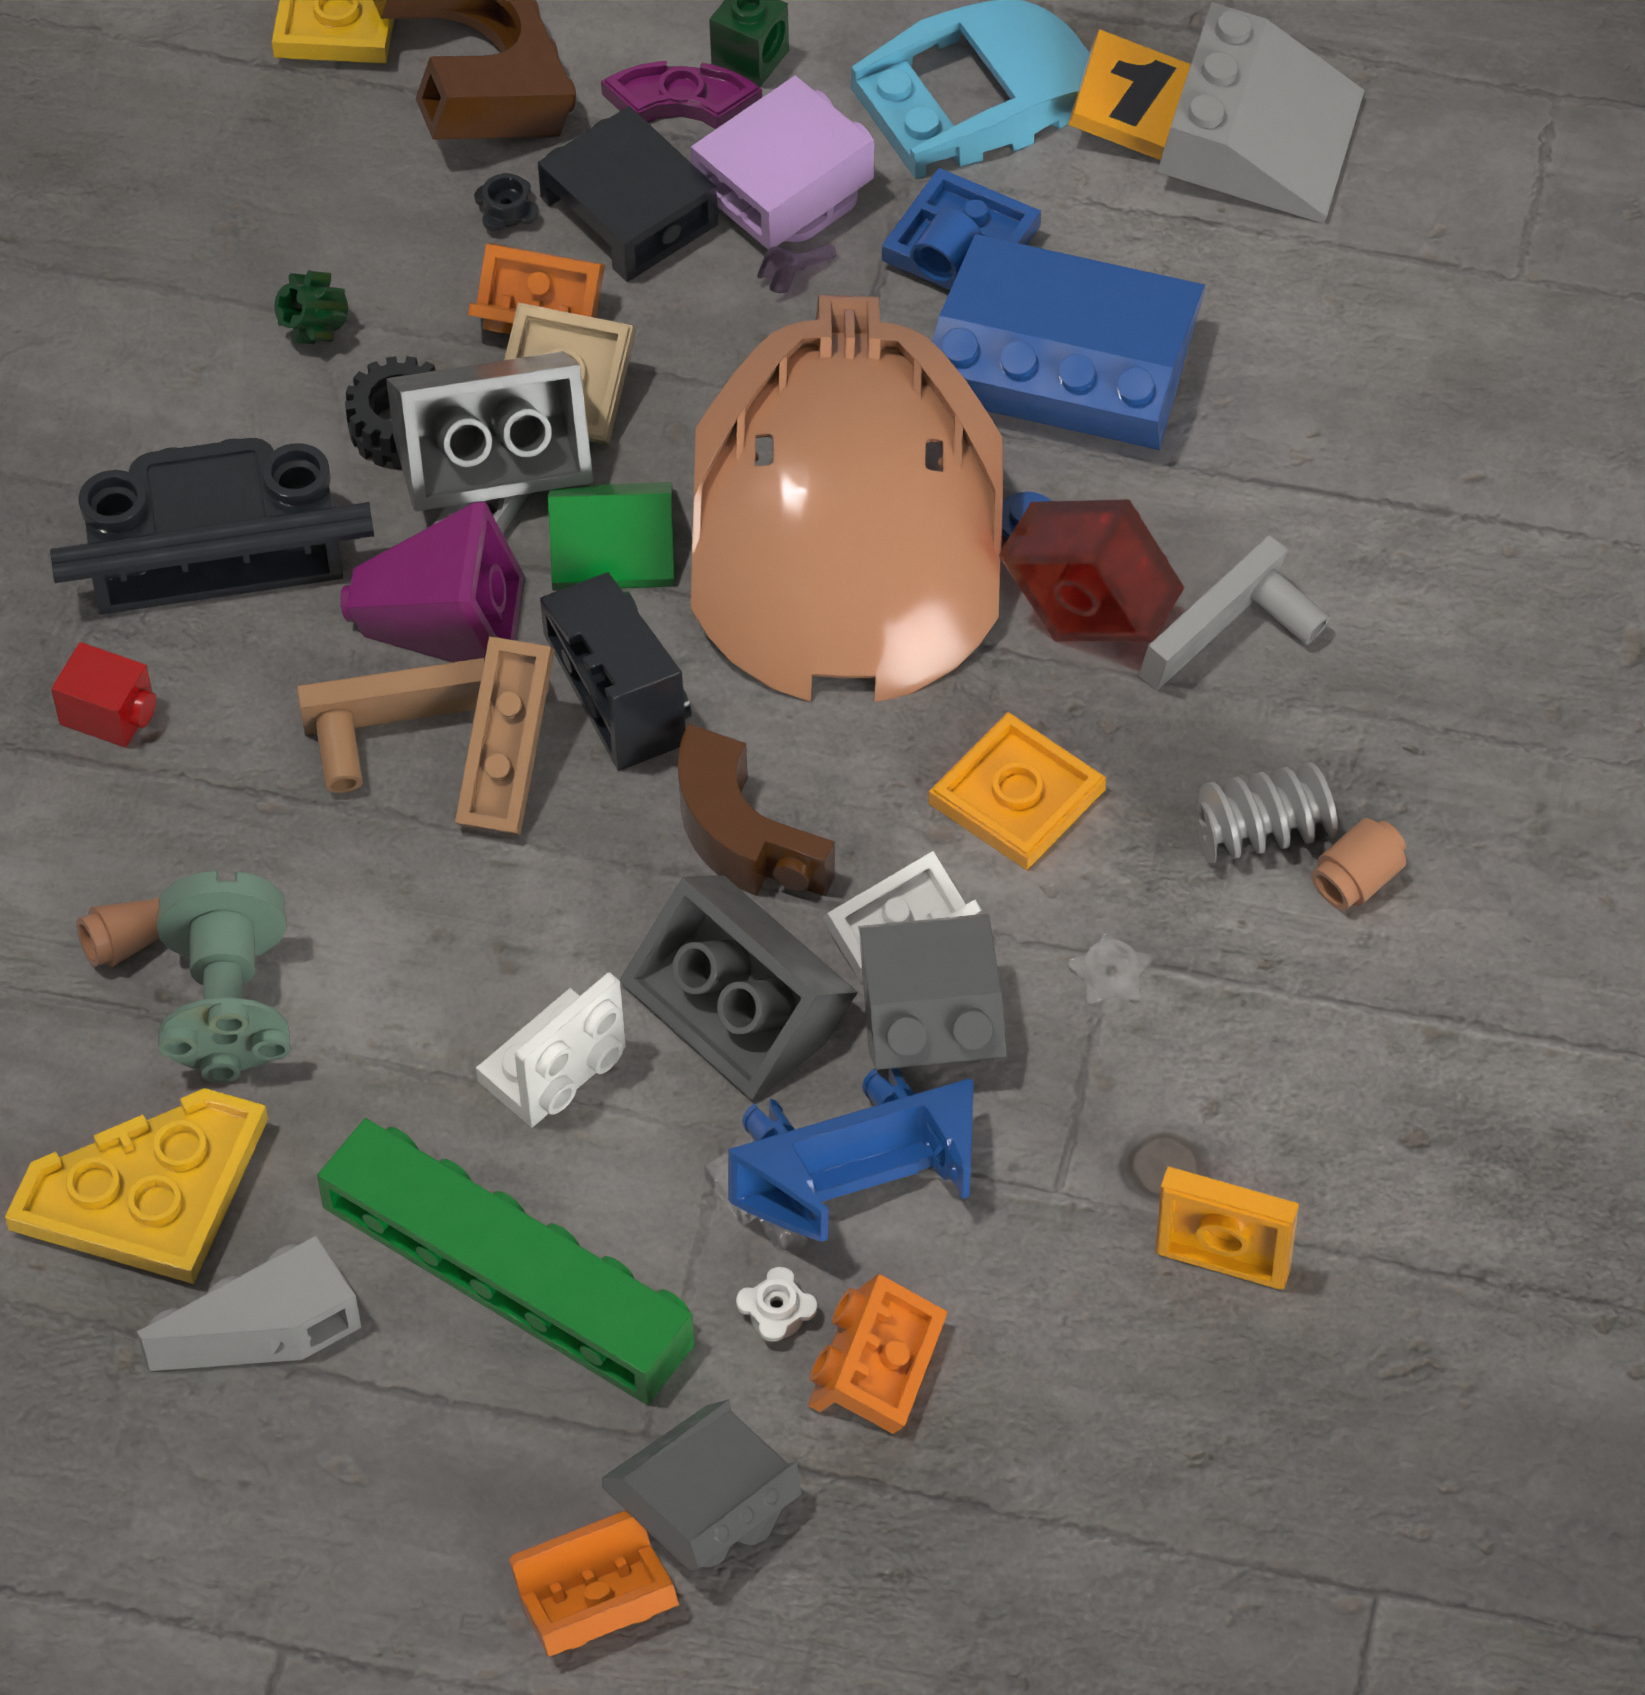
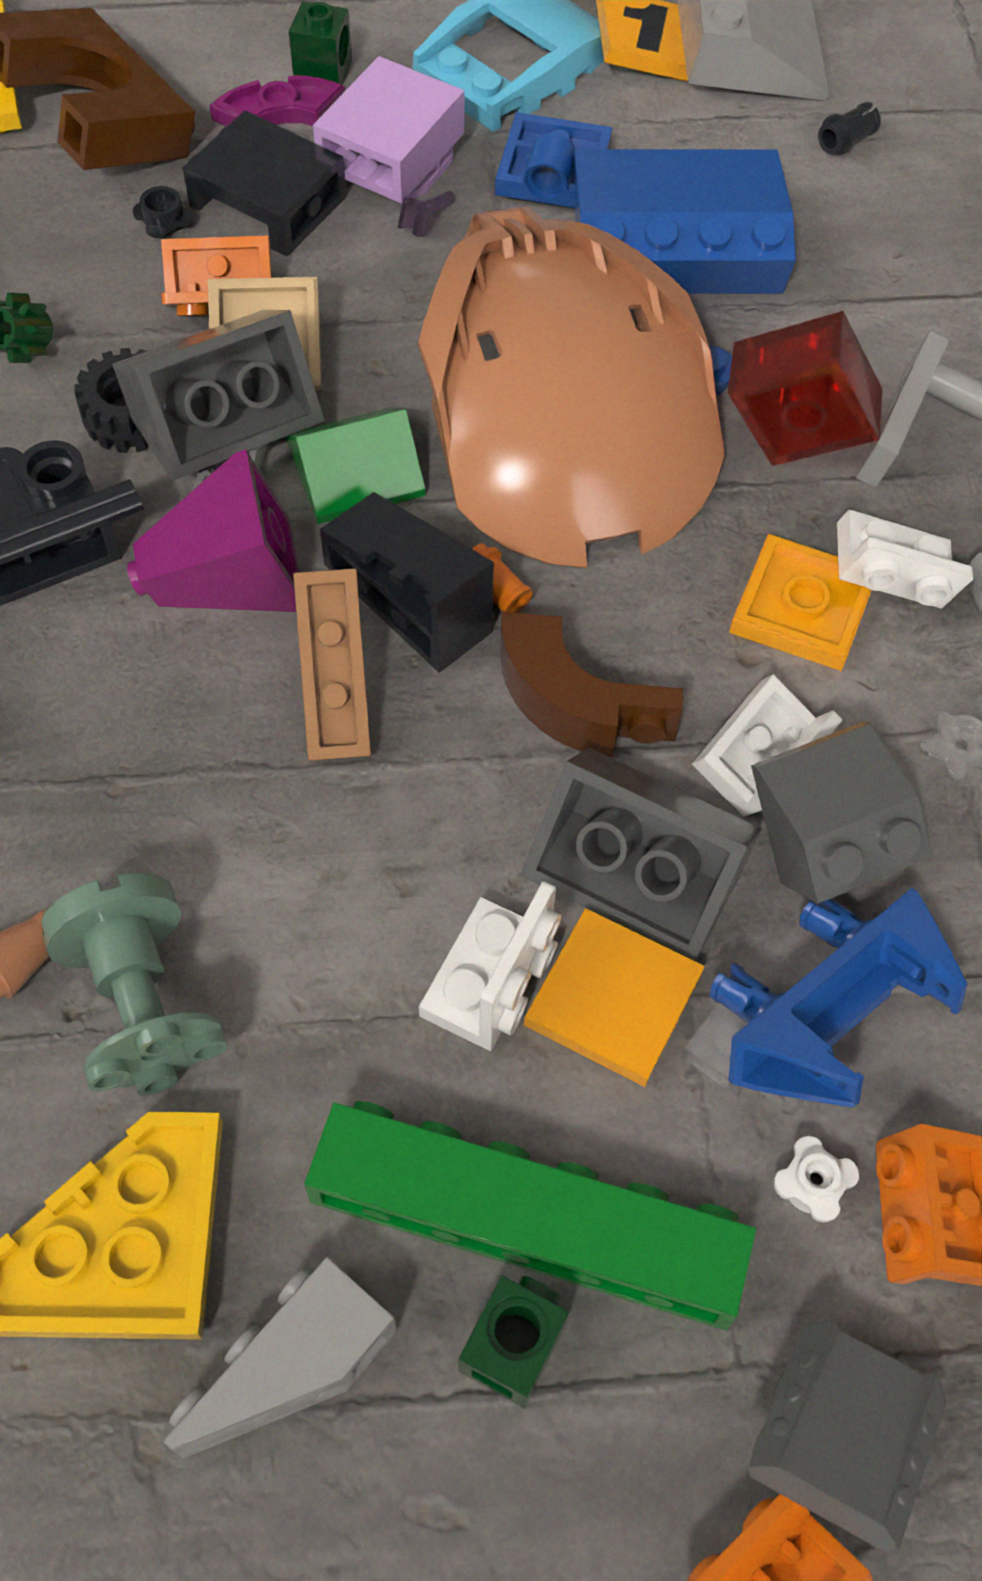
camera: 20 degrees left, 5 degrees up
(342, 705) = (163, 674): medium nougat piece -> none
(454, 1376) = (505, 1372): none -> dark green brick
(661, 1108) = (614, 997): none -> light orange tile
(707, 691) = (508, 590): none -> orange pin
(1124, 770) = (898, 560): none -> white bracket
(1308, 272) = (841, 131): none -> black pin

